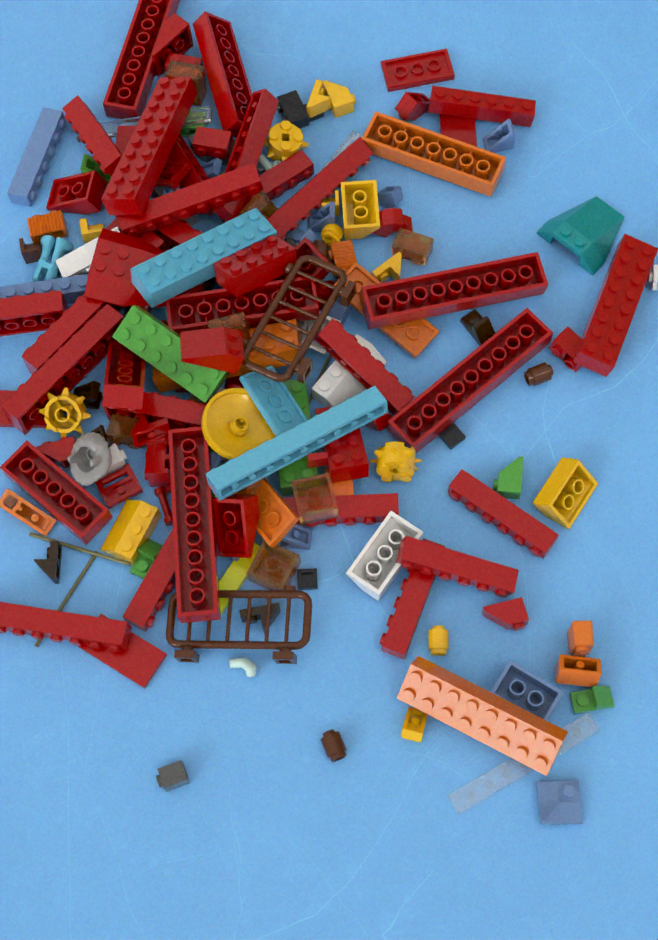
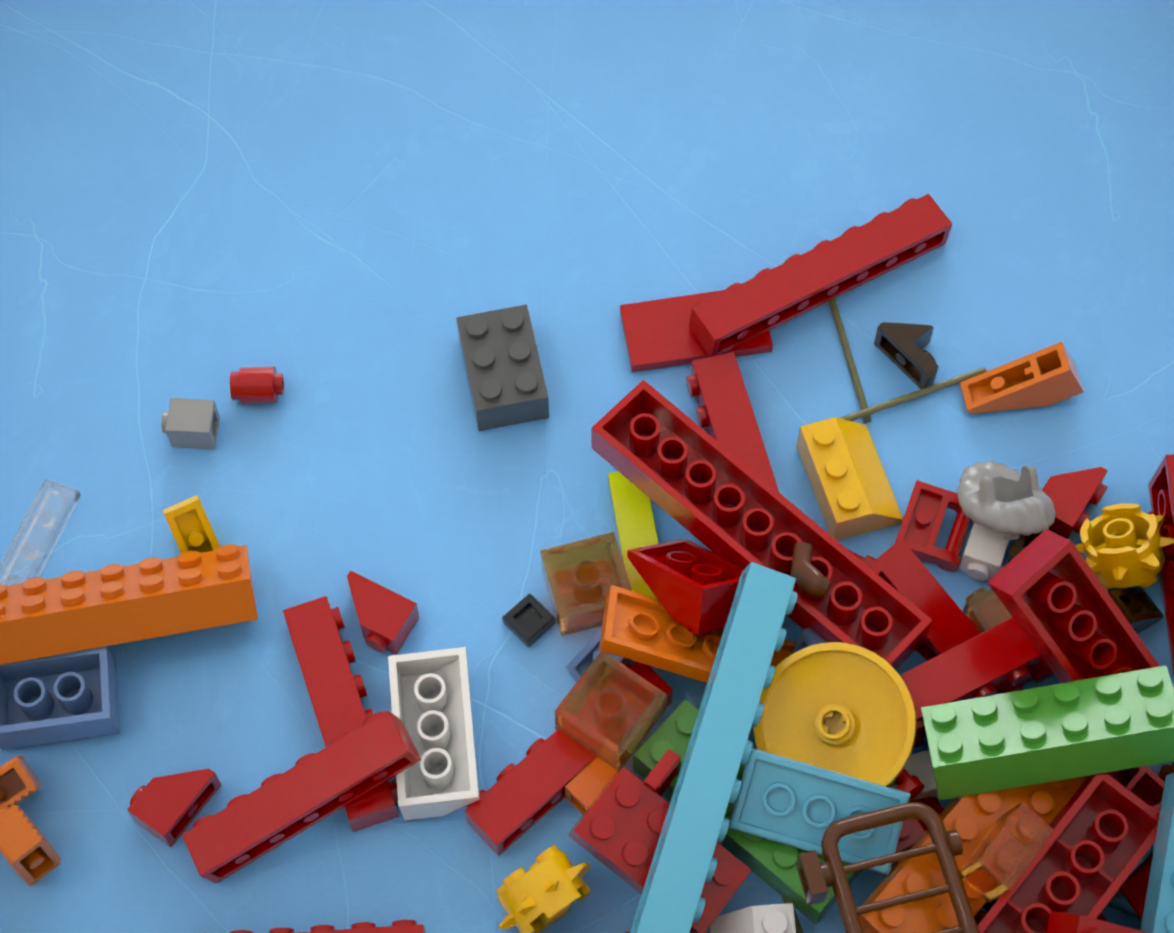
camera: 135 degrees right, 5 degrees down
(56, 492) = (1047, 431): red brick -> none
(146, 433) = (969, 602): red slope -> none
(147, 554) = (789, 463): bright green slope -> none
(172, 776) = (475, 237): dark grey brick -> none
(197, 481) = (806, 575): none -> reddish brown arm
(213, 348) = (990, 775): red slope -> none
(220, 696) = (503, 367): none -> dark grey brick
(244, 663) = (510, 438): light aqua arm -> none
(260, 613) = (544, 517): dark brown slope -> none
(283, 656) = (454, 477): reddish brown bar -> none
(330, 781) = (256, 385): none -> red brick
(333, 745) = (290, 429): reddish brown brick -> none
(365, 625) = (382, 614): none -> red slope
(374, 785) = (191, 423): none -> light grey brick
(438, 640) = (252, 680): yellow brick -> none

